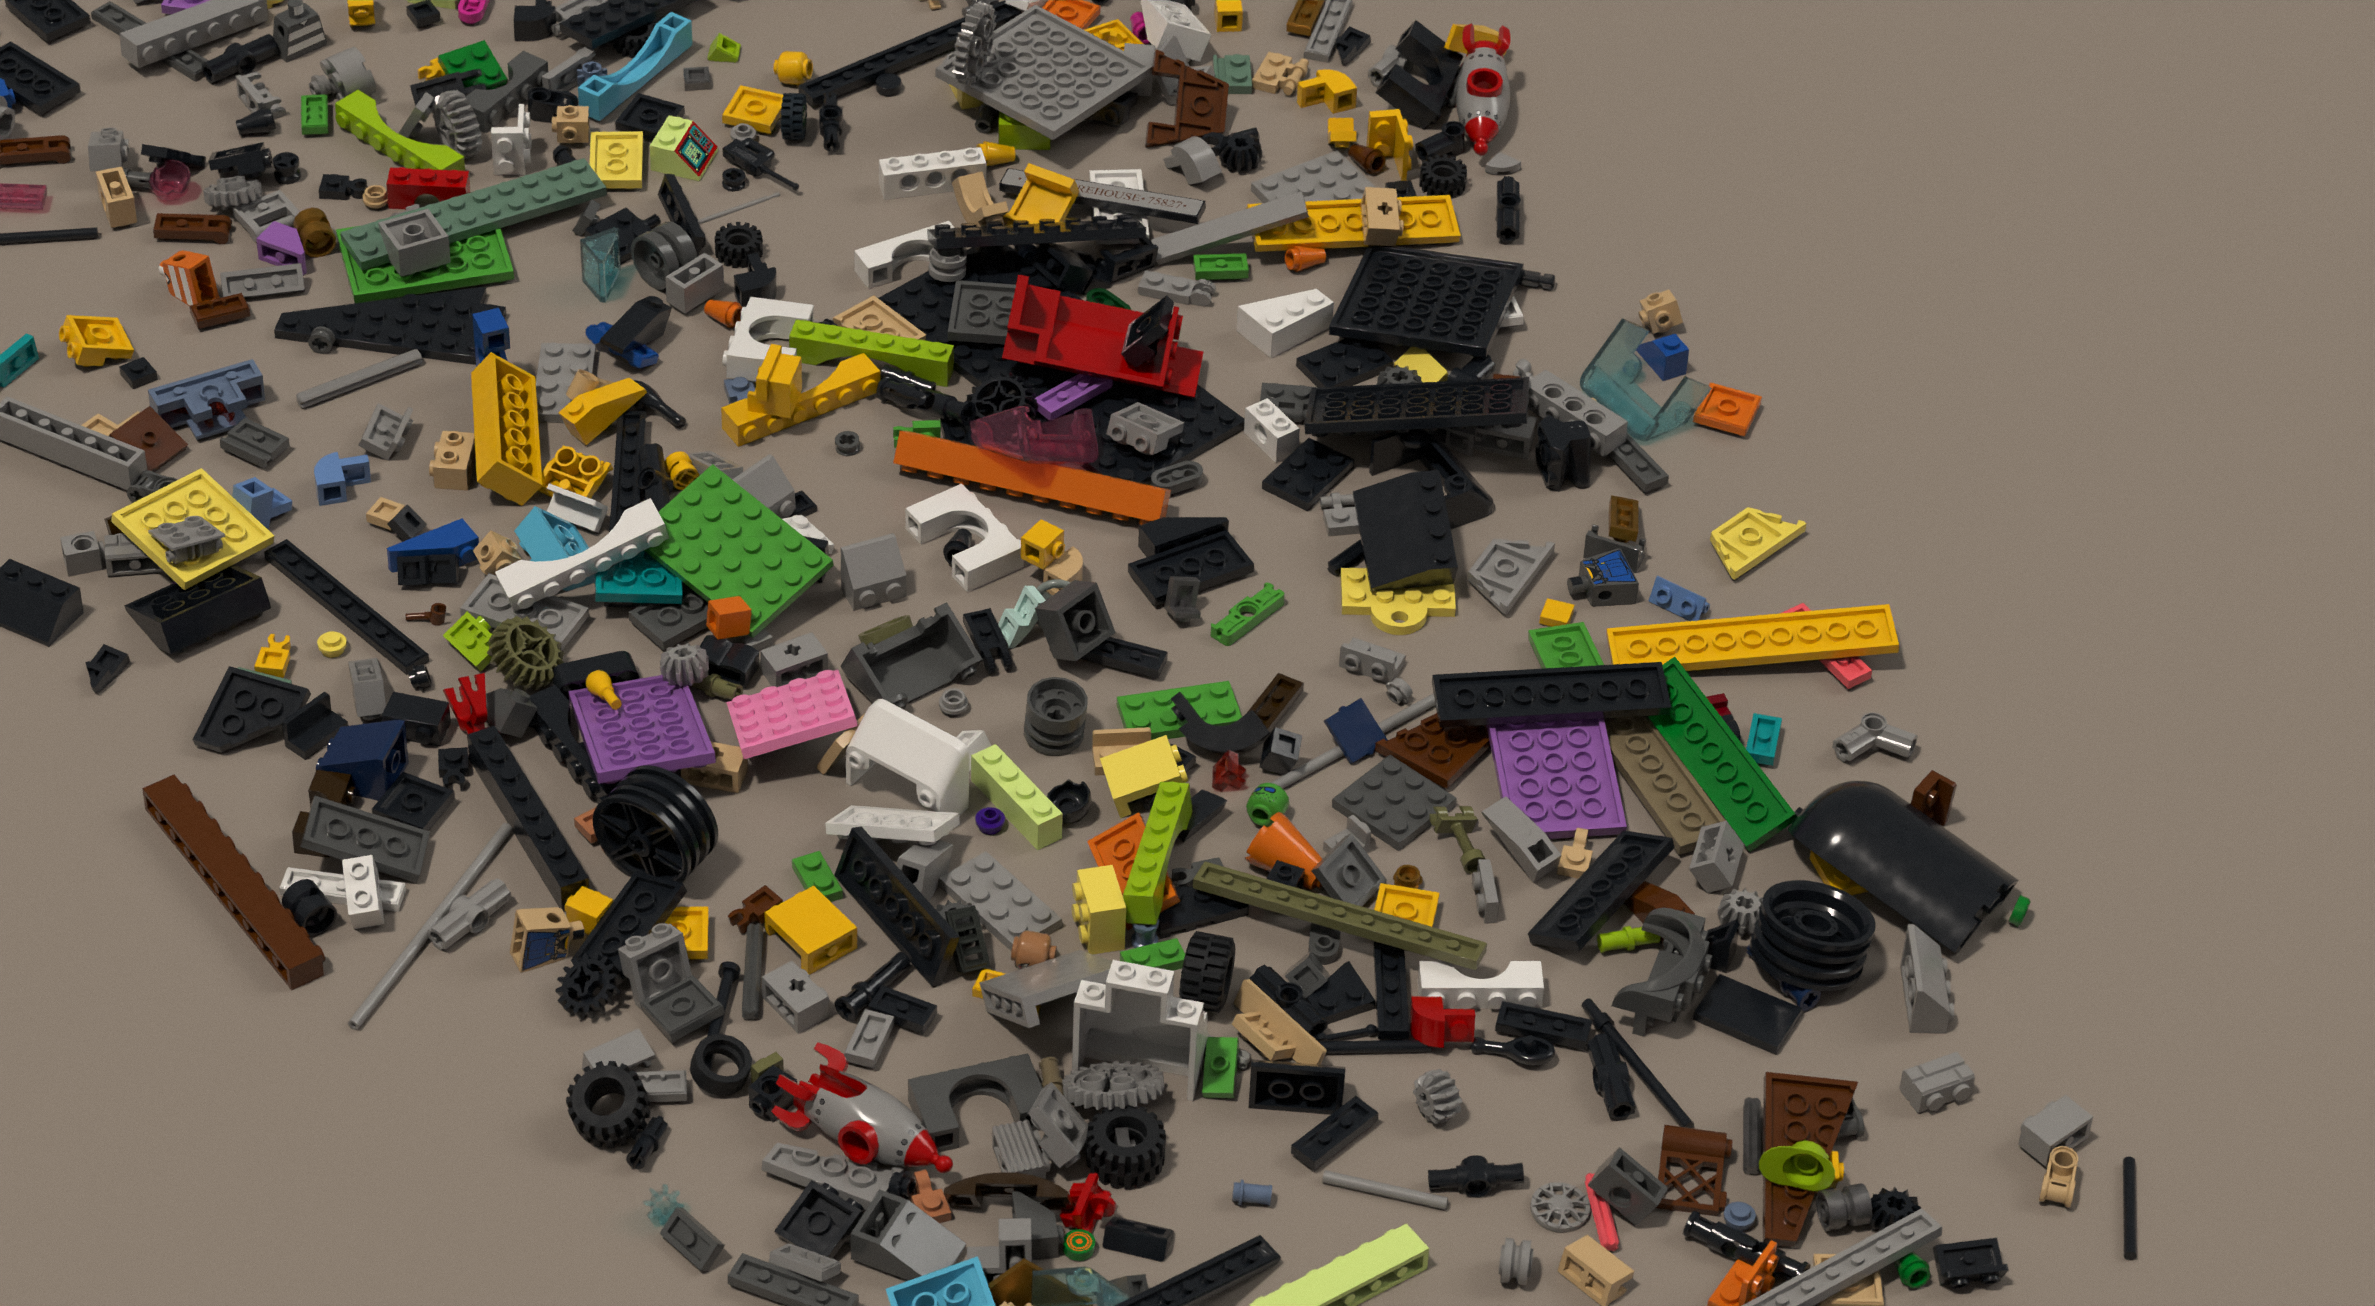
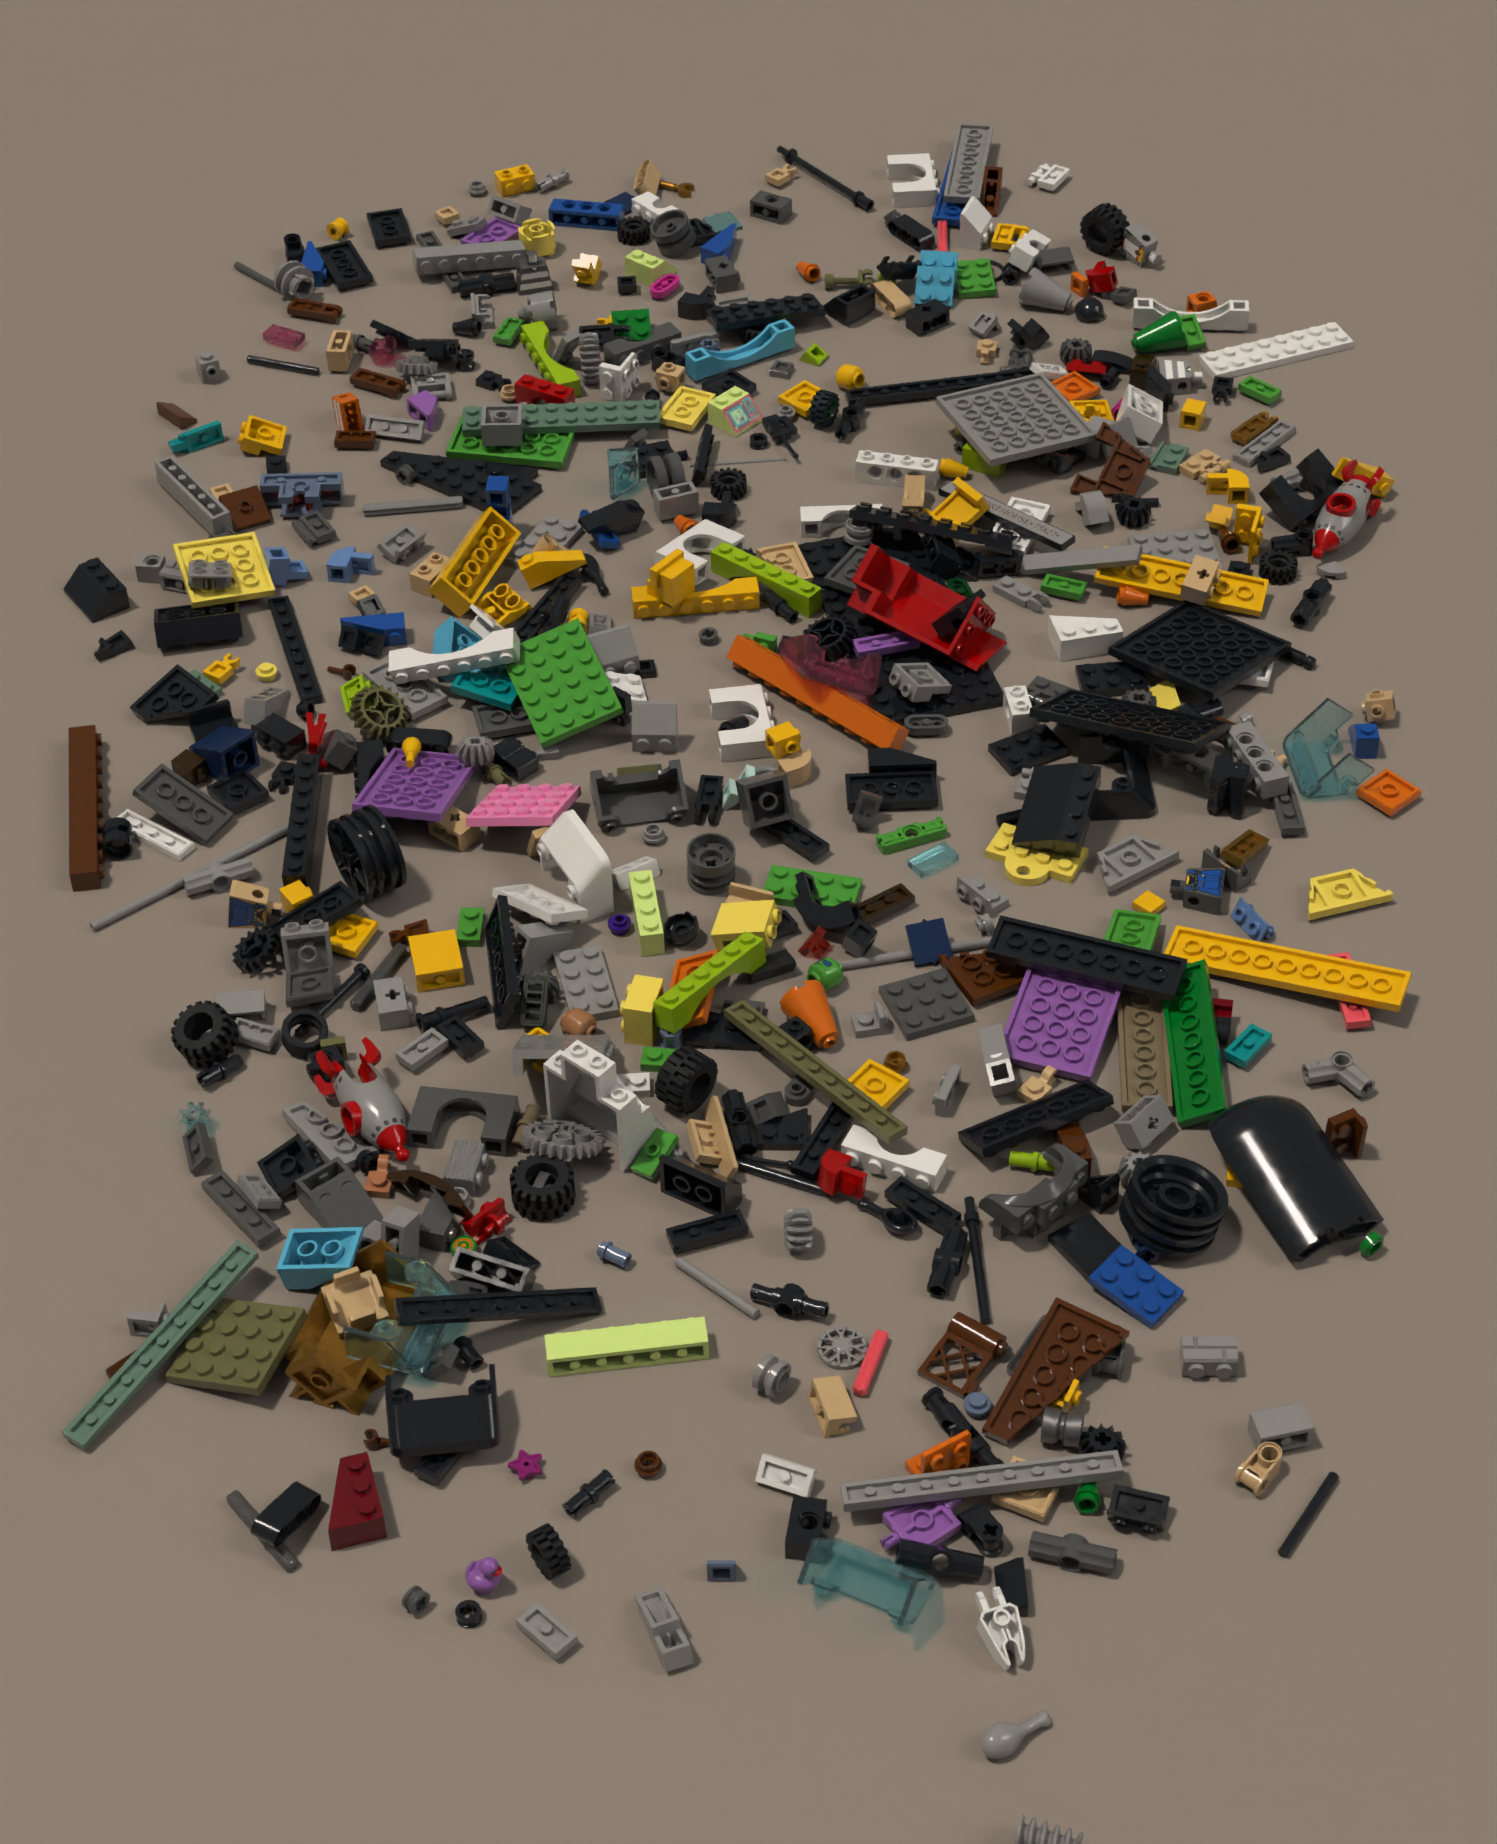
camera: 30 degrees right, 0 degrees up
(107, 149) = (355, 319): light grey brick -> none
(315, 232) = (450, 404): pearl gold wheel -> none
(363, 892) = (155, 838): white brick -> none
(496, 553) = (412, 638): tan brick -> none
(728, 617) = (528, 727): orange panel -> none
(793, 659) = (560, 770): light grey brick -> none
(888, 84) = (912, 405): black tile -> none
(926, 401) = (778, 621): black piece -> none
(974, 43) = (960, 382): light grey gear -> none
(1062, 1126) = (497, 1153): light grey plate -> none
(1154, 1257) = (490, 1271): none -> black brick
(1290, 635) = (933, 859): none -> clear light blue tile
(1349, 872) = (847, 1044): dark grey plate -> none
(1459, 825) = (959, 1036): olive bar -> none
(1628, 1186) = (894, 1349): dark grey brick -> none
(1798, 1165) = (1036, 1379): lime piece -> none
(1818, 1035) = (1136, 1286): none -> blue plate
(1925, 984) = (1249, 1274): light grey slope -> none

